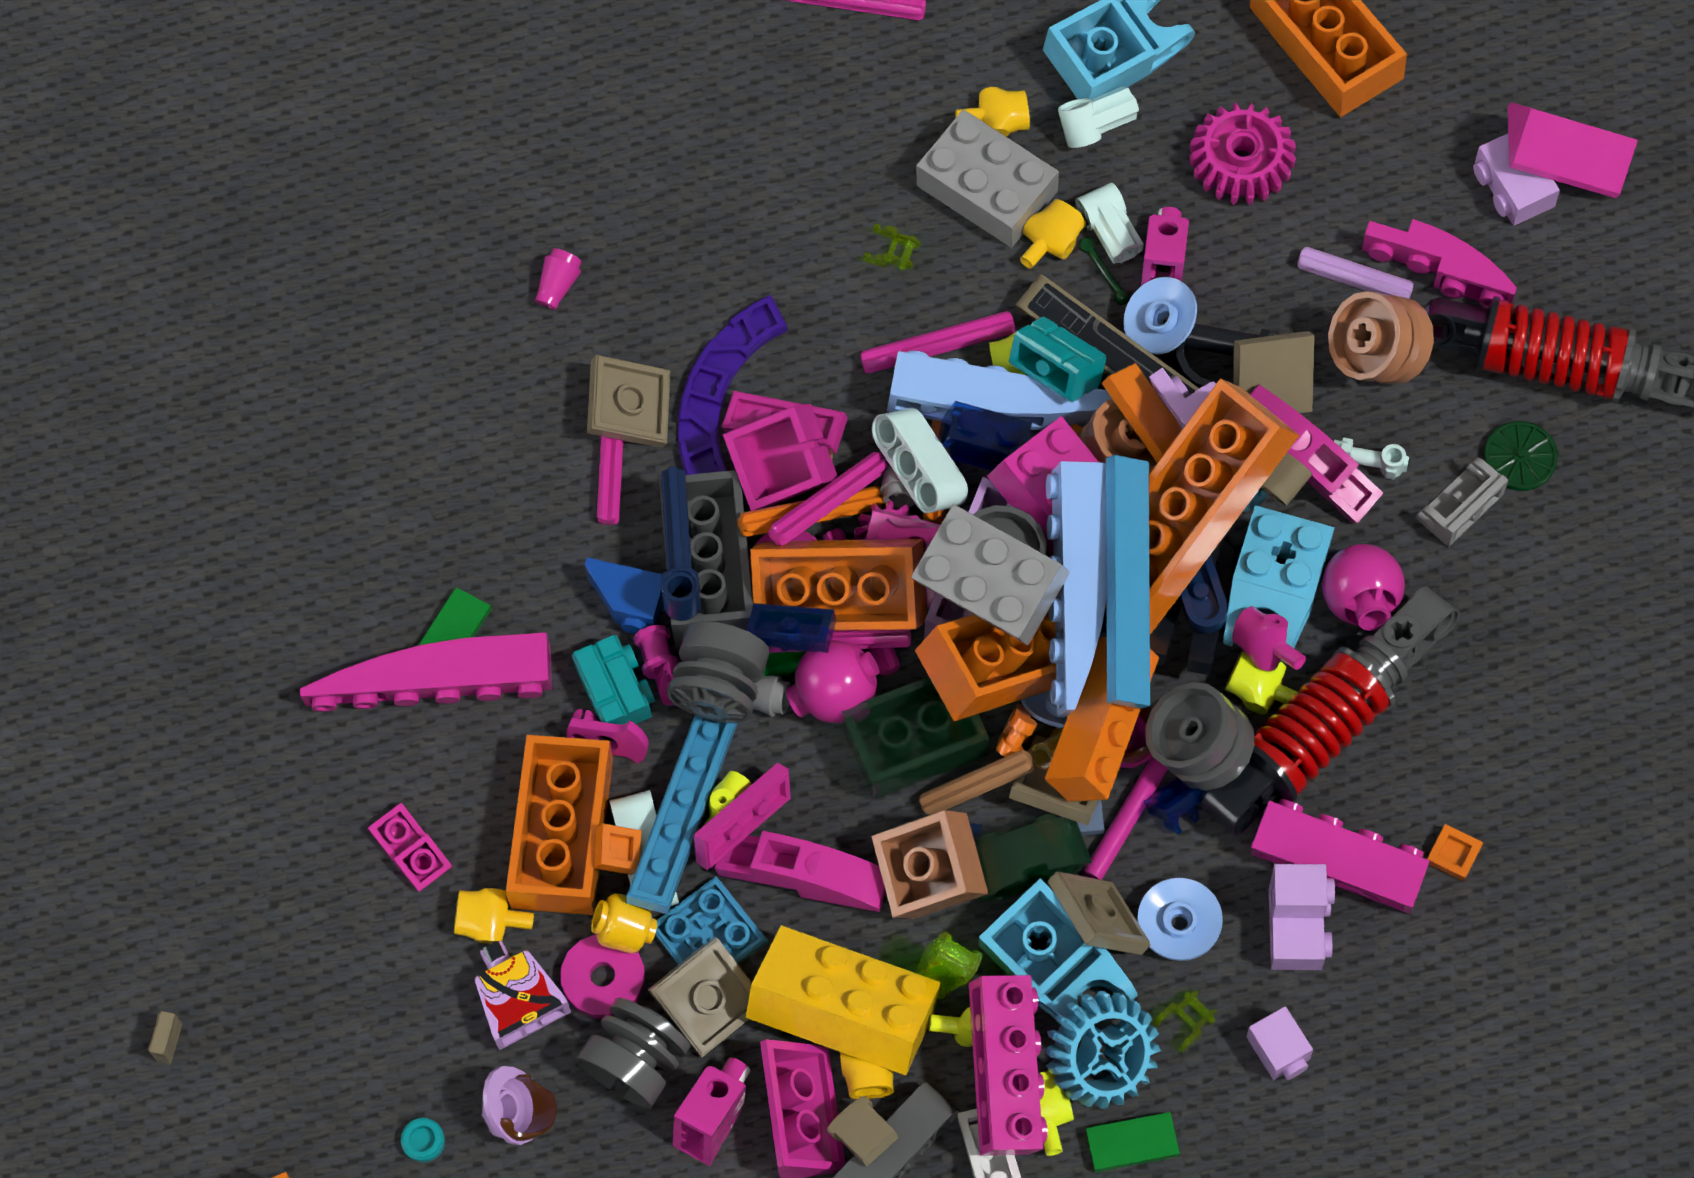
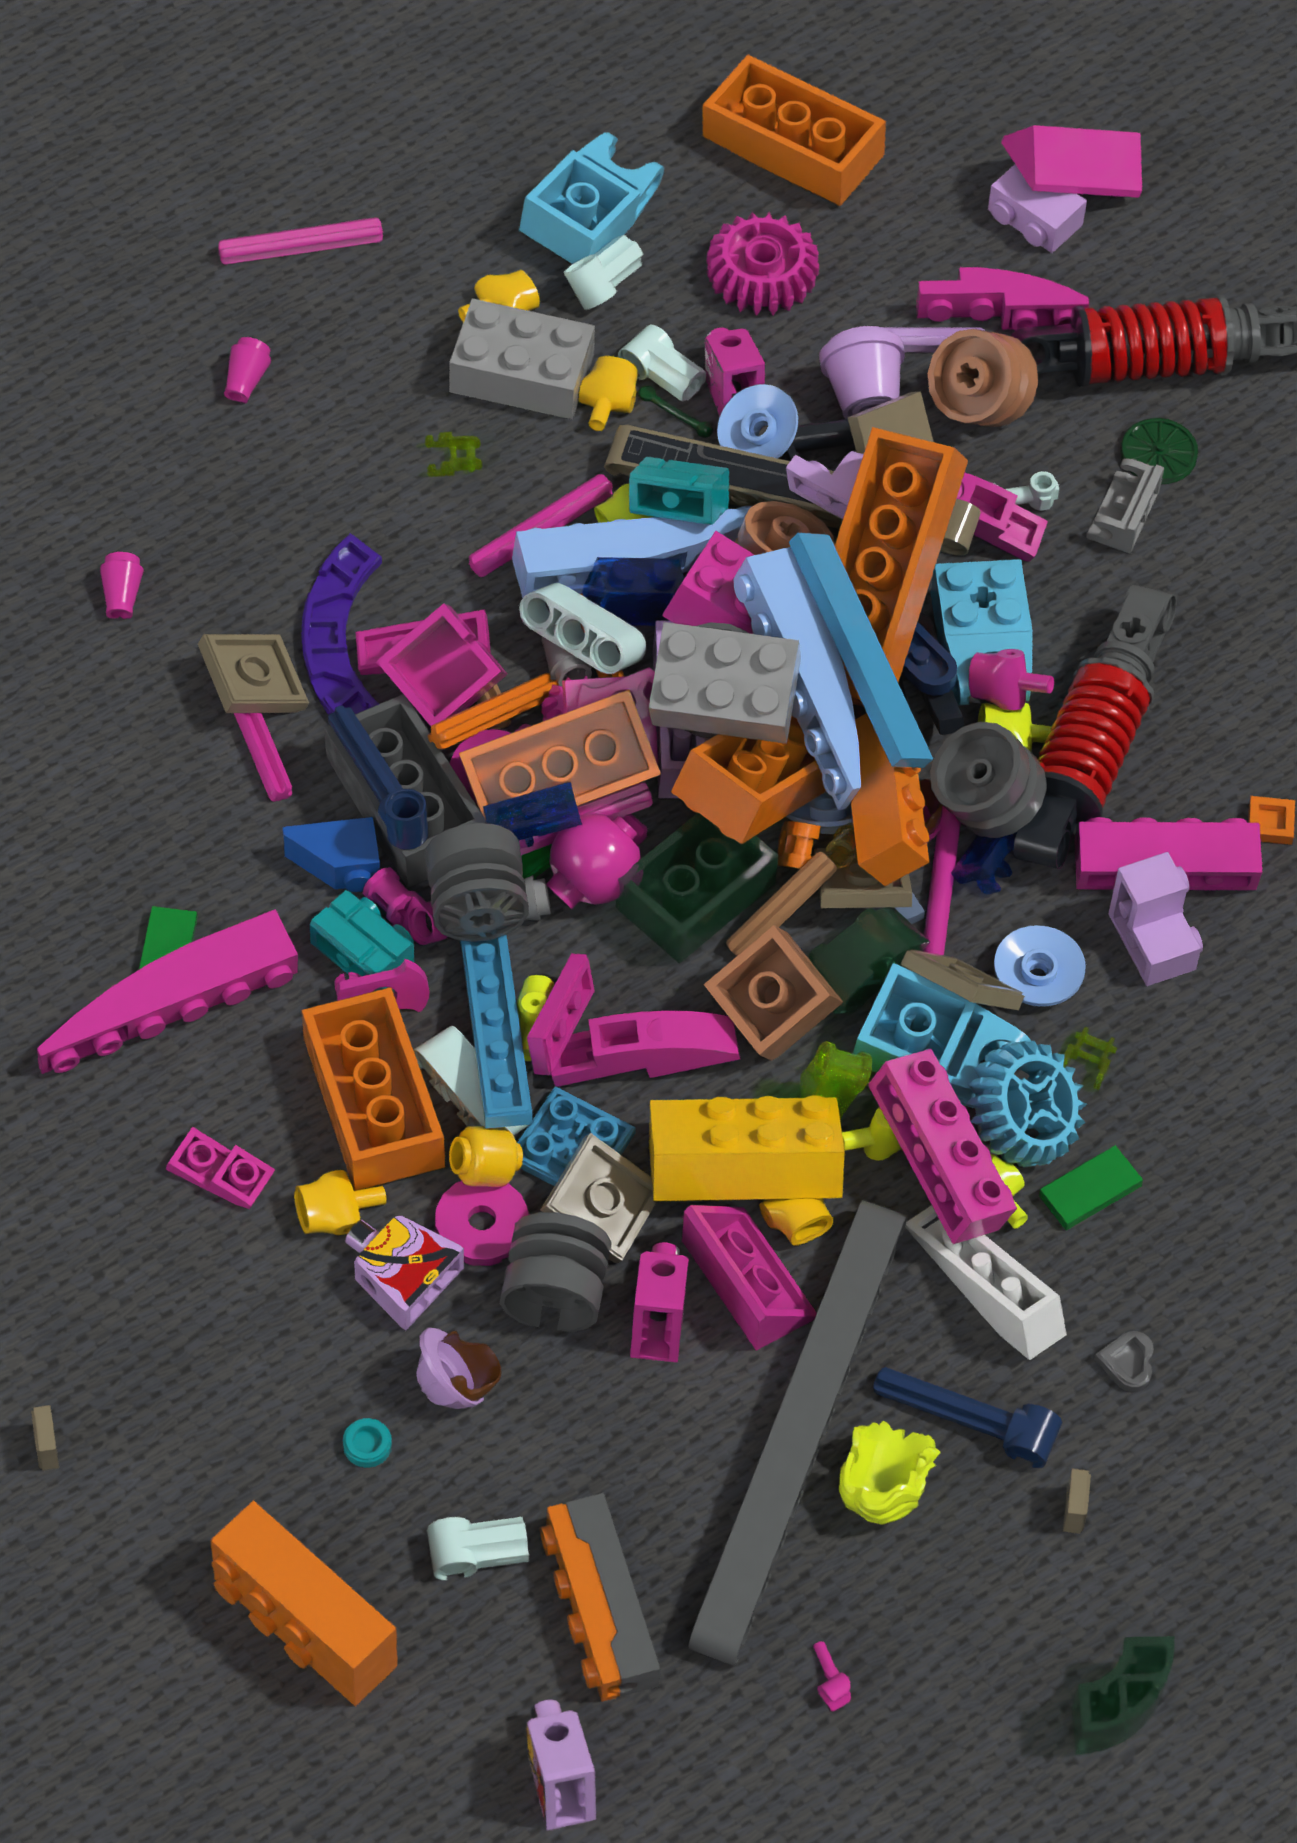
camera: 30 degrees left, 10 degrees down
(617, 848) = (449, 1083): orange tile -> none
(749, 107) = (246, 367): none -> dark pink cone
(828, 498) = (509, 689): dark pink axle -> none
(862, 1130) = (825, 1262): dark tan tile -> none
(1143, 409) = (790, 504): orange tile -> none
(1280, 1044) = (1192, 1045): lavender brick -> none
(1281, 292) = (863, 367): none -> lavender piece
(1363, 586) = (1072, 604): dark pink brick -> none

